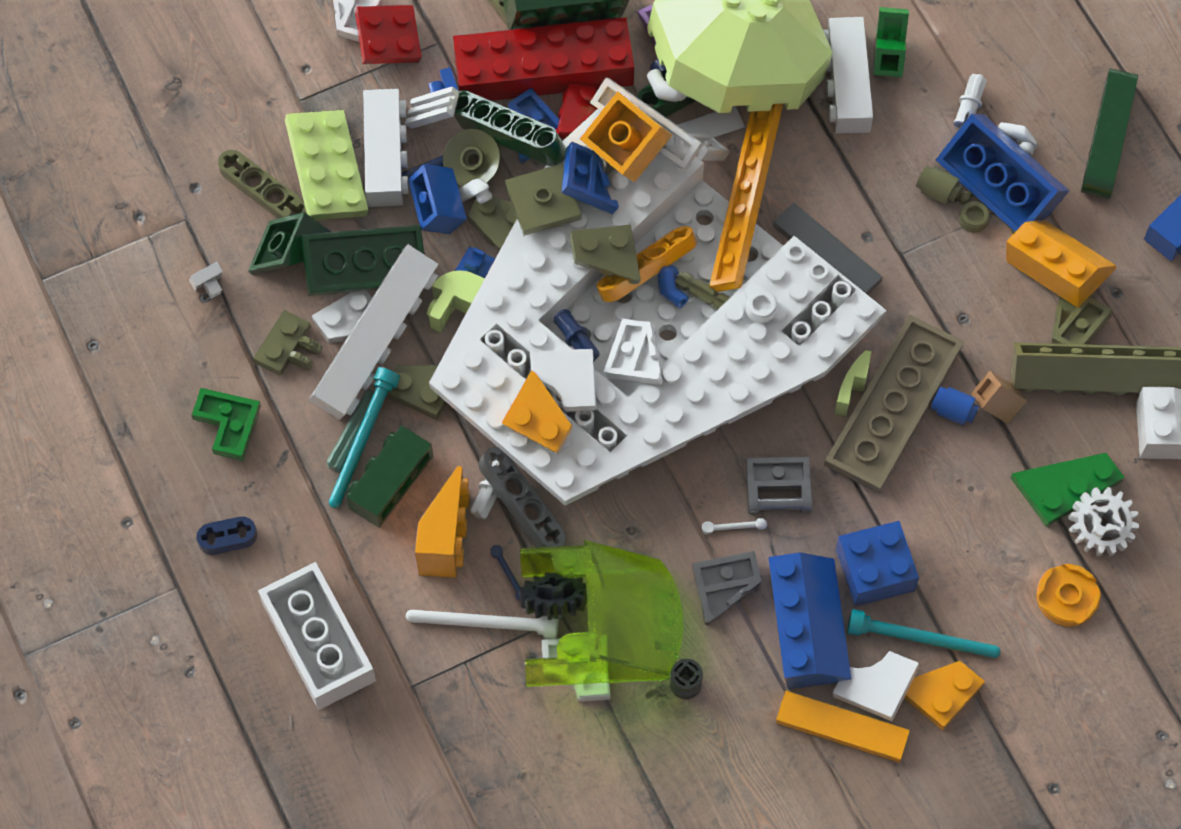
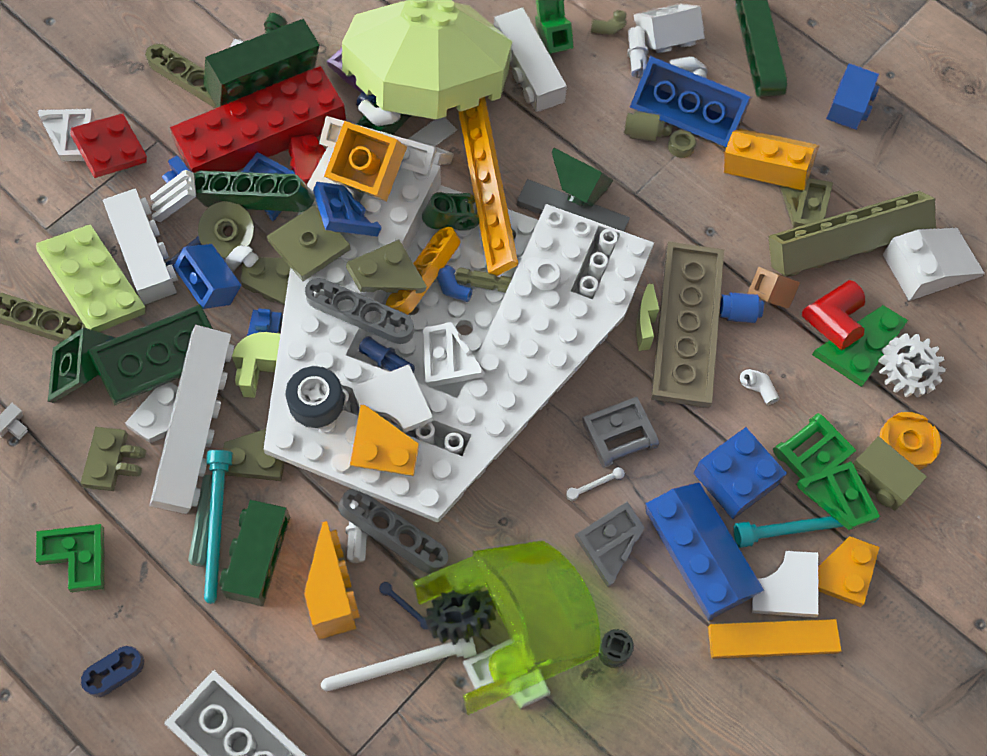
camera: 25 degrees left, 0 degrees up
(489, 338) = (309, 386): none -> black wheel
(570, 278) = (361, 307): none -> dark grey beam
(702, 212) = (450, 211): none -> dark green piece
(844, 220) = (579, 179): none -> dark green slope
(941, 487) = (761, 383): none -> white arm
(957, 64) = (612, 26): none -> olive arm
(966, 618) = (841, 495): none -> green wing
(967, 578) = (824, 455): none -> green plate
(1017, 85) = (671, 26): none -> white slope
(1024, 616) = (888, 474): none -> olive brick
(1046, 442) = (832, 313): none -> red brick

